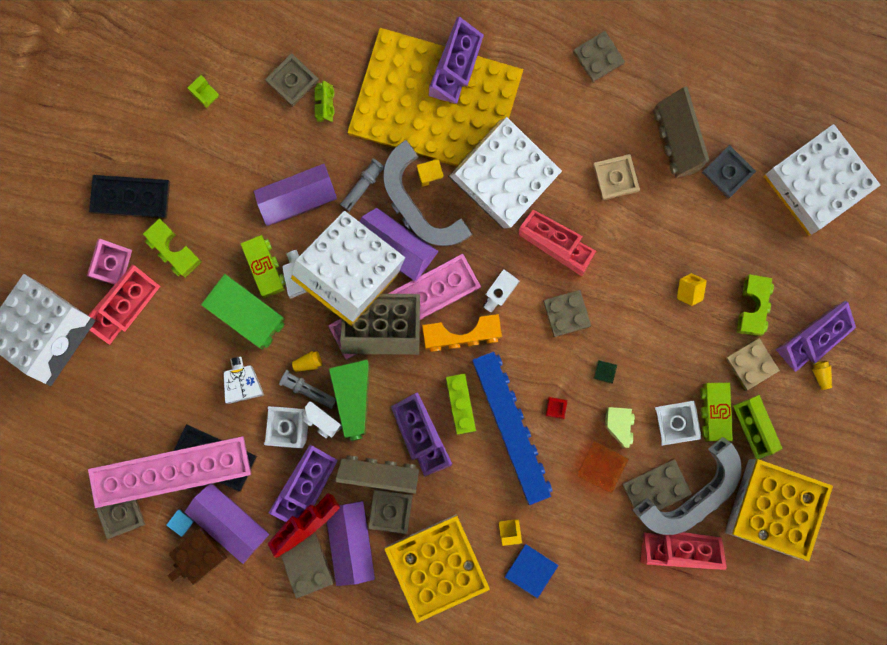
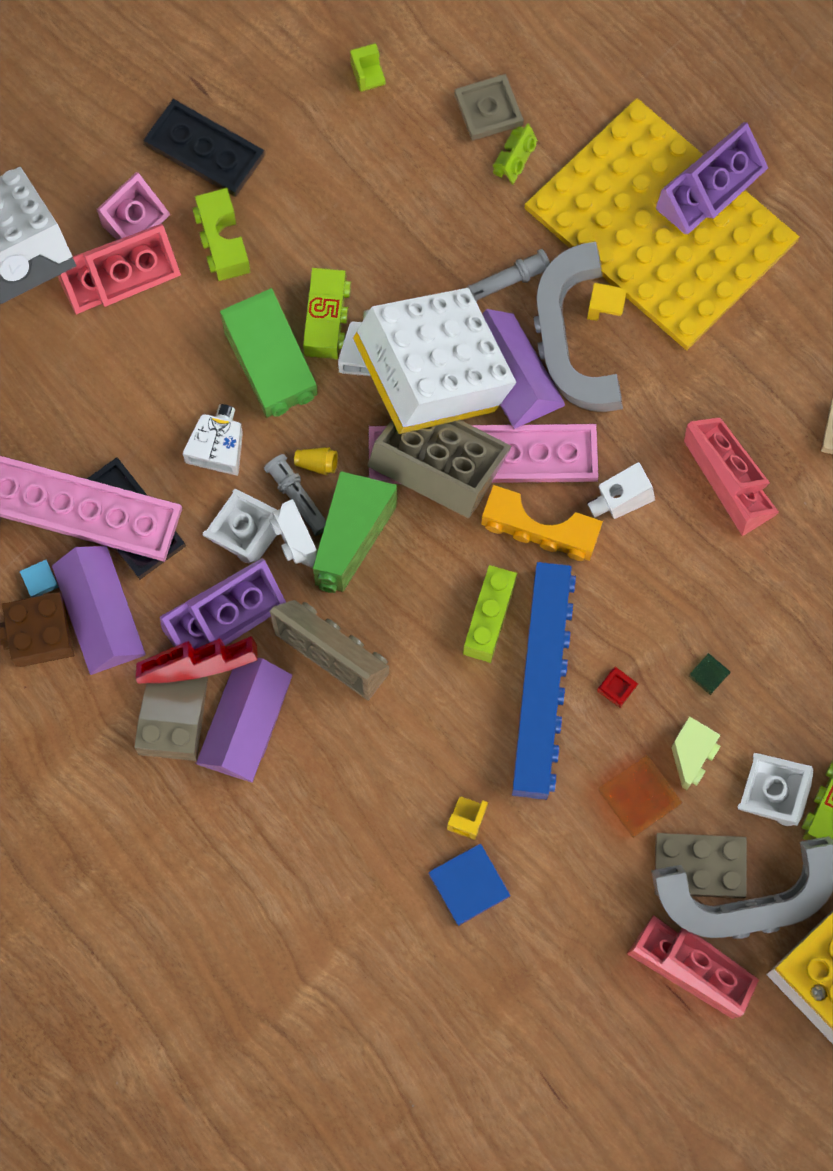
camera: 35 degrees right, 10 degrees down
(295, 195) = (415, 248): medium lavender slope -> none
(390, 511) = (321, 705): dark tan plate -> none
(420, 435) = (415, 627): medium lavender slope -> none
(436, 568) = (342, 805): yellow piece -> none
(505, 173) = (705, 345): white piece -> none
(567, 313) = (696, 572): dark tan plate -> none

